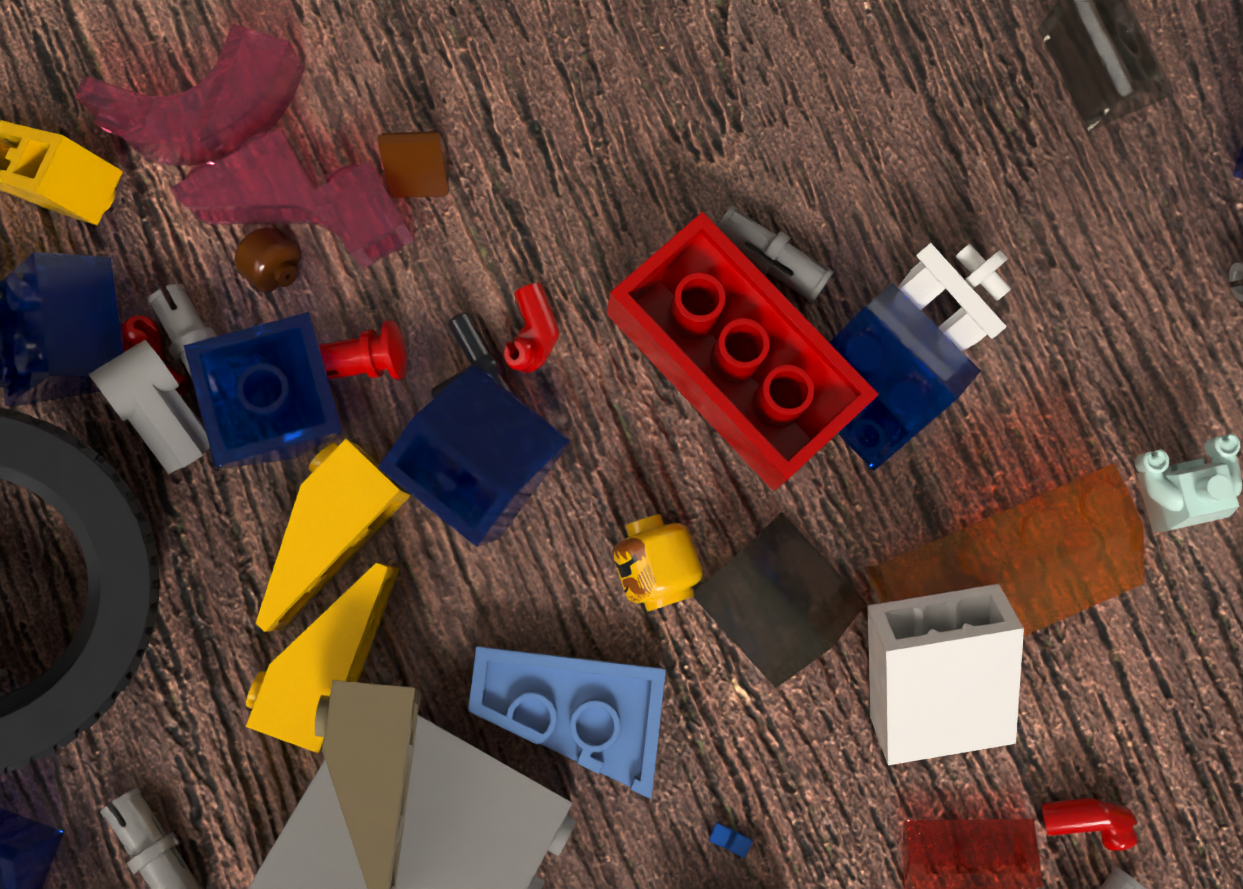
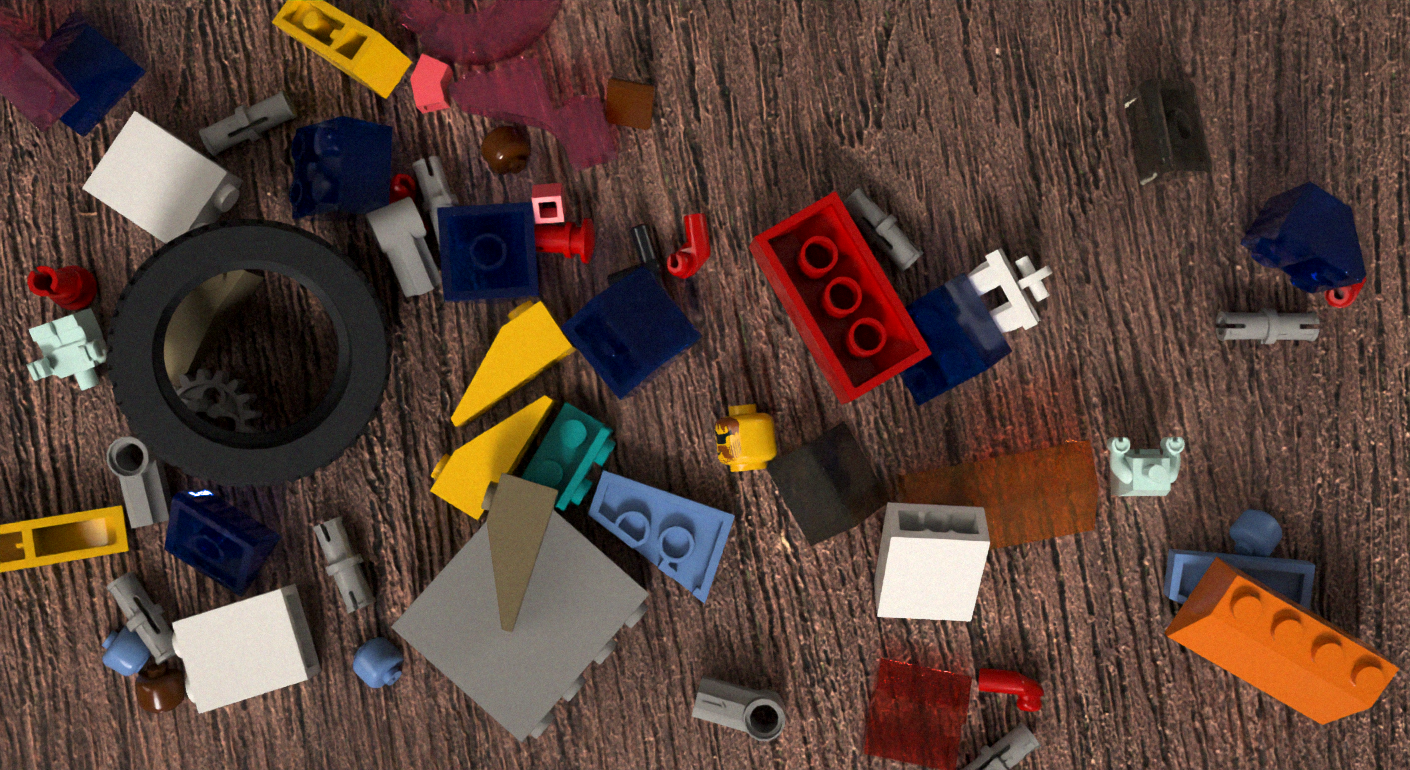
camera: 10 degrees right, 5 degrees up
(151, 196) = (430, 84): none -> coral piece
(329, 297) = (548, 193): none -> coral piece
(428, 637) = (569, 454): none -> teal bracket
(730, 839) = (754, 644): blue piece -> none

